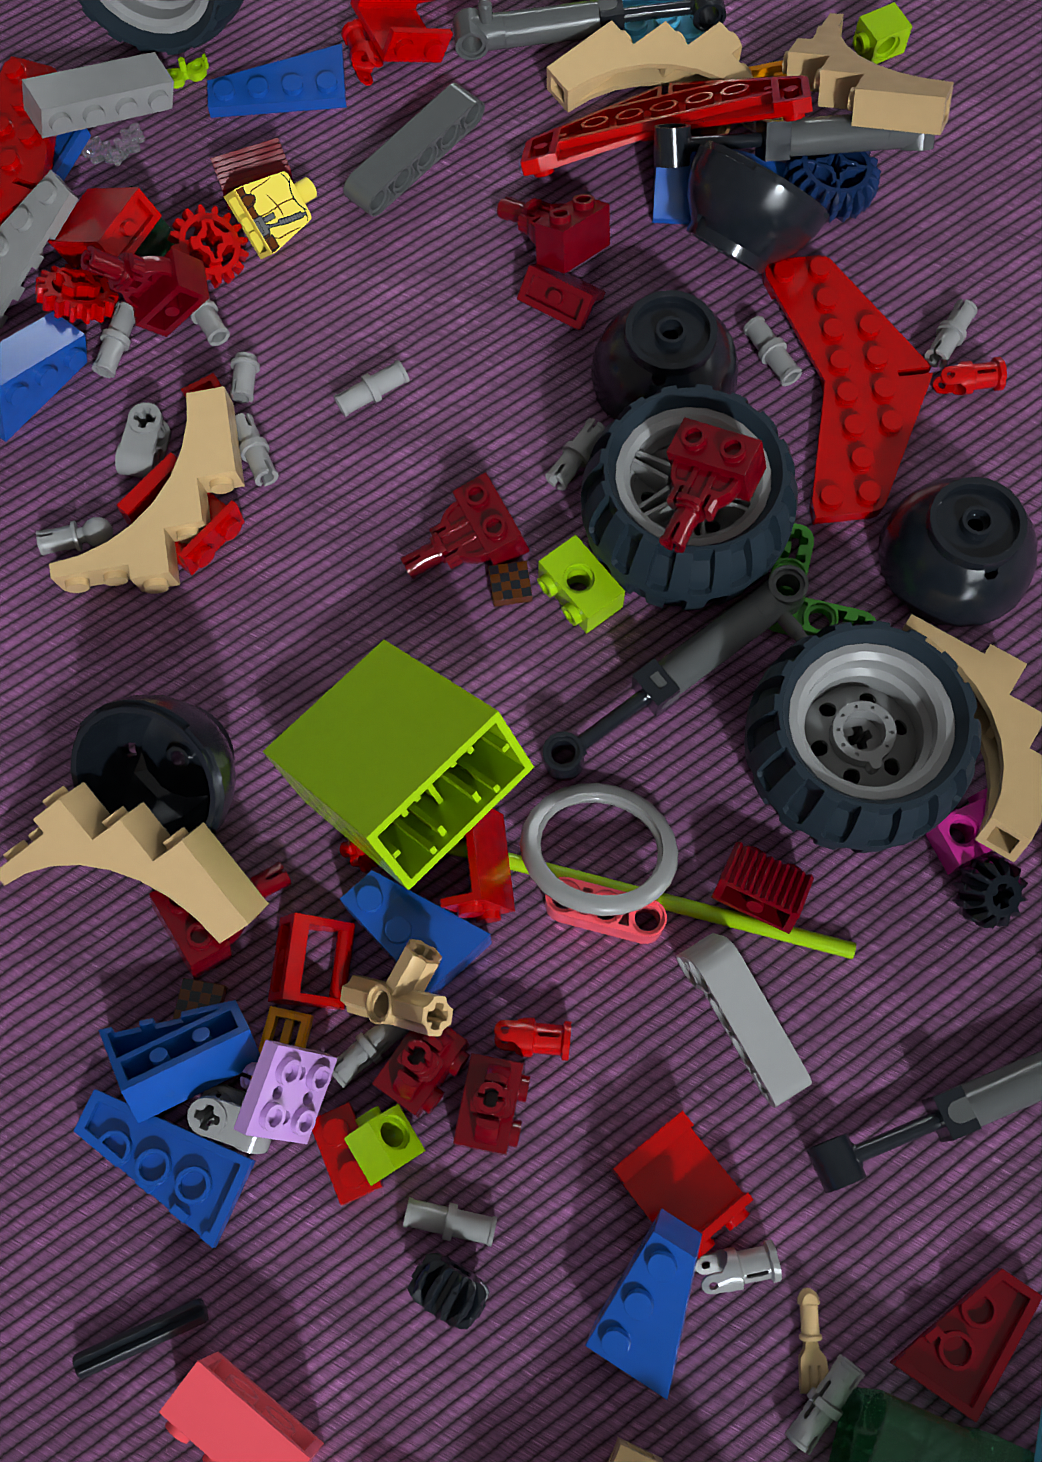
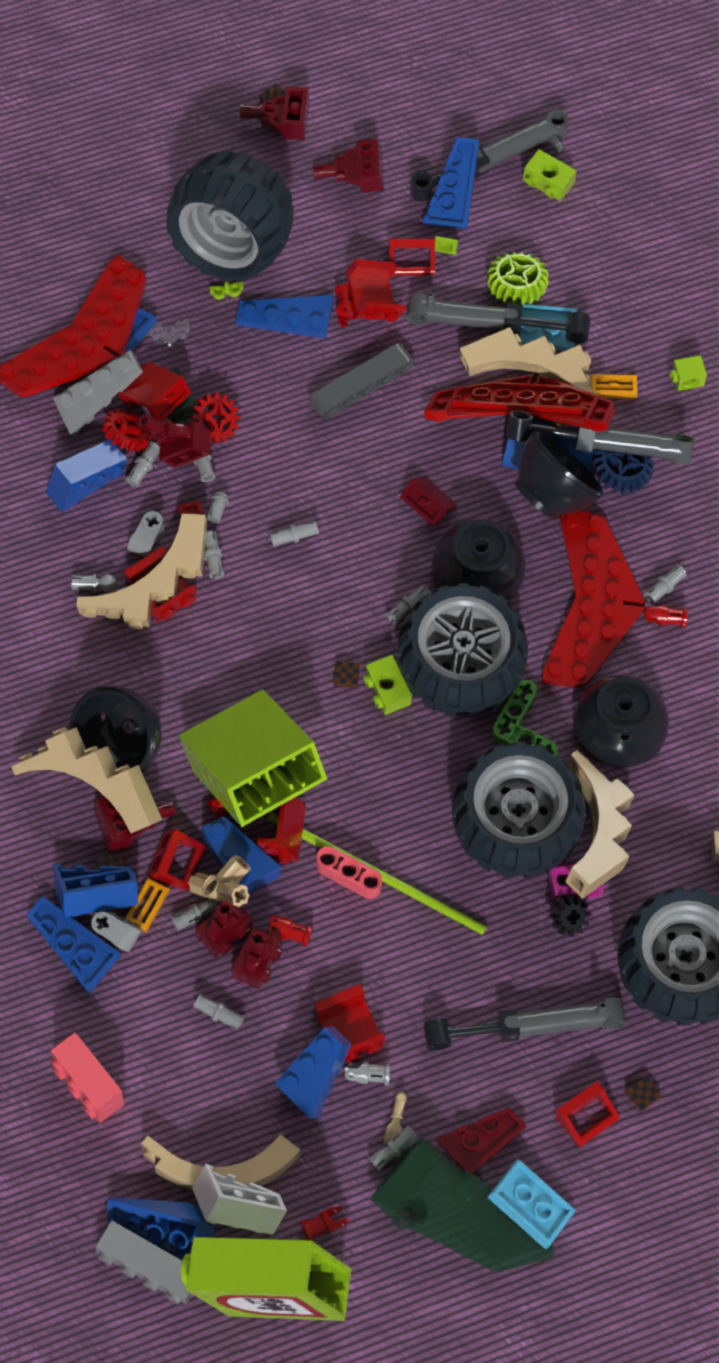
camera: 10 degrees right, 5 degrees down
(97, 94) = (169, 300): light grey brick -> none
(140, 1338) = (40, 1028): black axle -> none
(249, 165) = (254, 374): dark red brick -> none
(272, 210) = (260, 404): light yellow torso -> none
(275, 1093) = (144, 916): lavender plate -> none
(340, 1163) = (171, 965): red plate -> none
(383, 1142) = (193, 961): lime brick -> none
(448, 1290) = (209, 1041): black gear -> none
(470, 532) = (331, 637): dark red brick -> none
(562, 231) = (437, 460): dark red brick -> none
(592, 903) = (348, 865): light grey wedge -> none
(663, 681) = (420, 753): dark grey piece -> none
(707, 474) = (467, 641): dark red brick -> none
(746, 1016) = (410, 948): light grey beam -> none
(763, 887) = (442, 881): dark red brick -> none
(772, 351) = (549, 569): light grey pin -> none
(873, 93) = (640, 408): tan arch -> none

